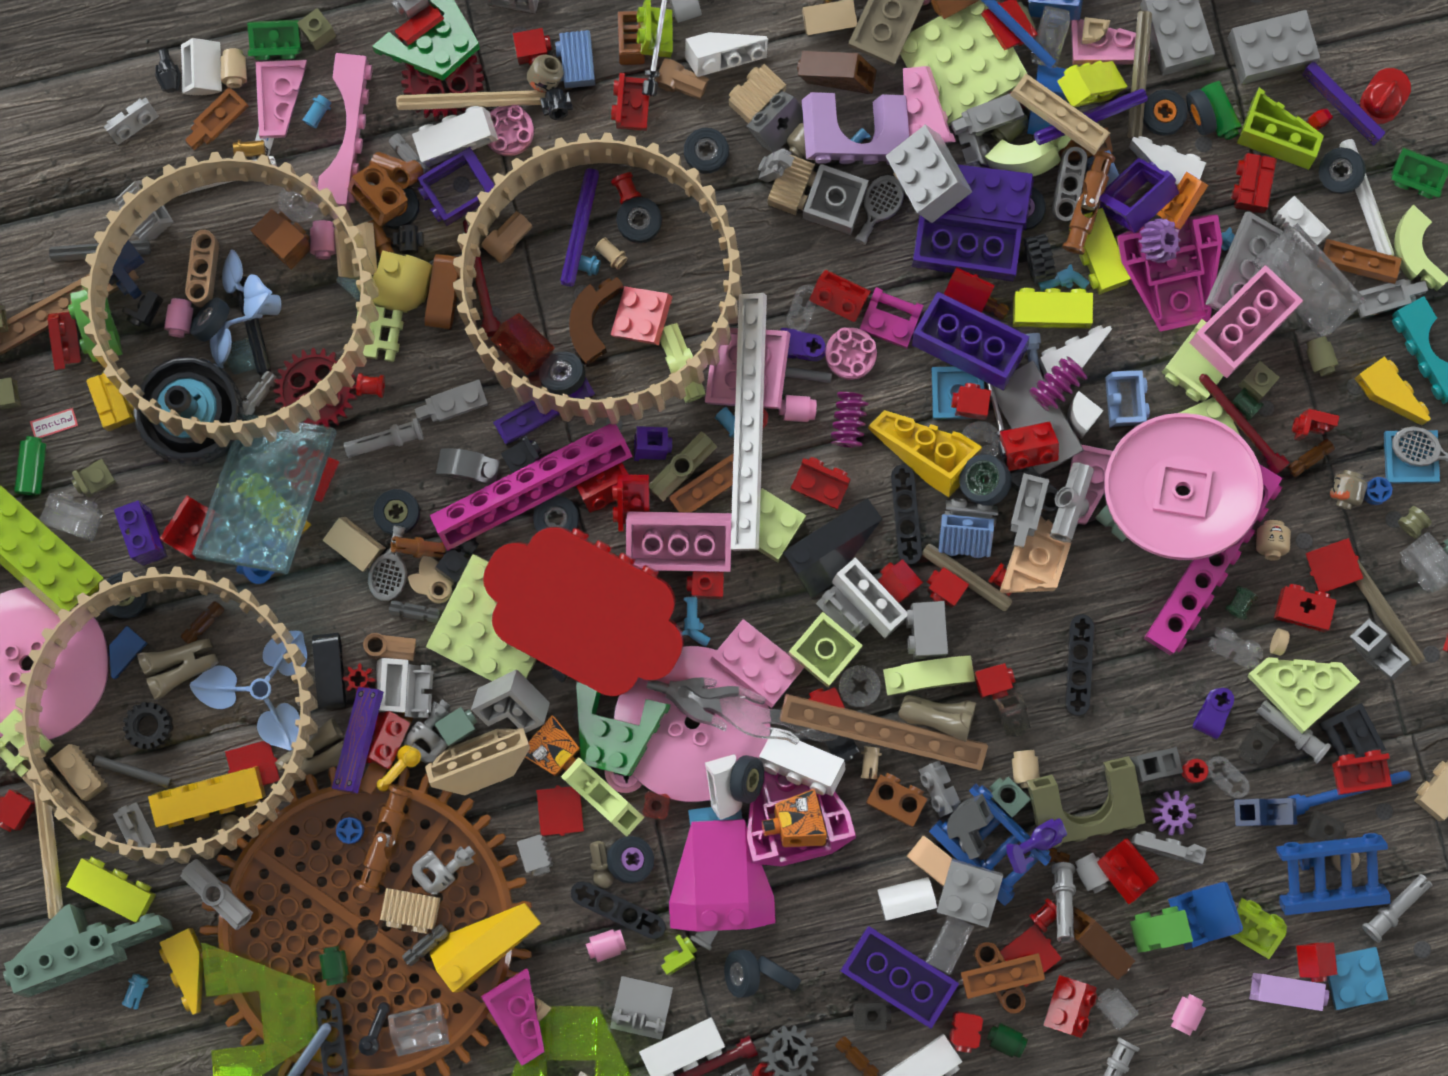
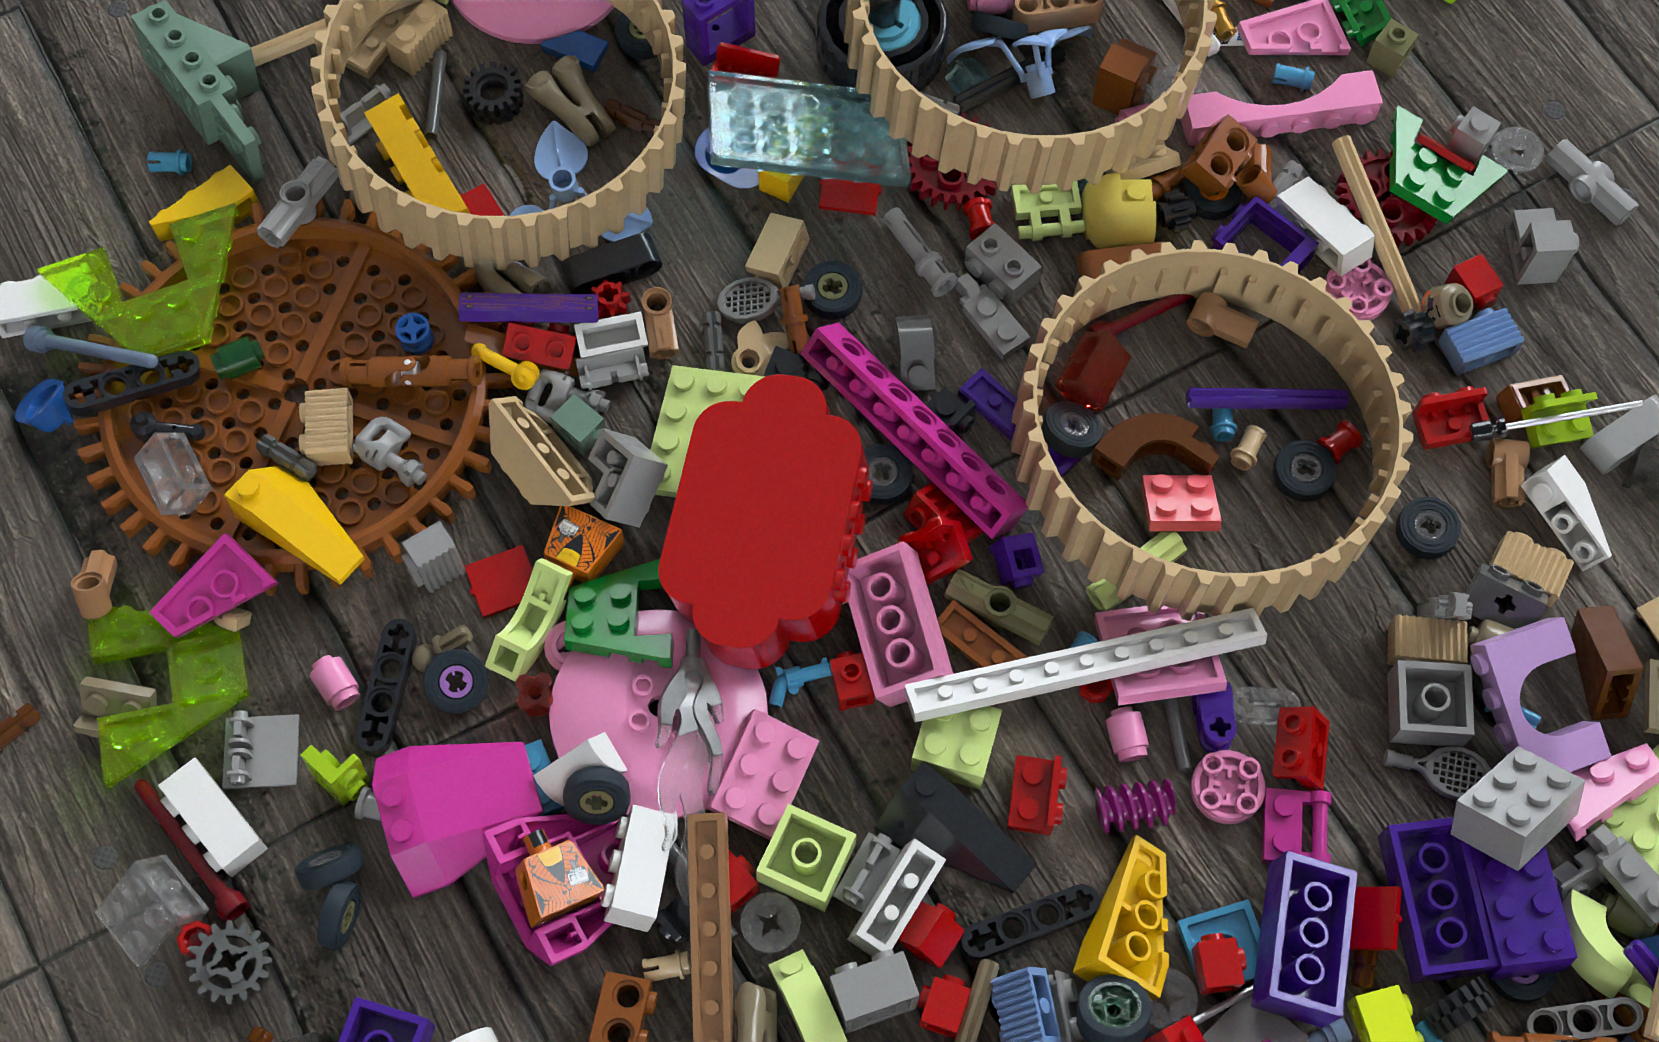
camera: 70 degrees right, 15 degrees down
(111, 889) = (285, 106): neon yellow brick -> none
(414, 381) = (1002, 264): none -> light grey brick

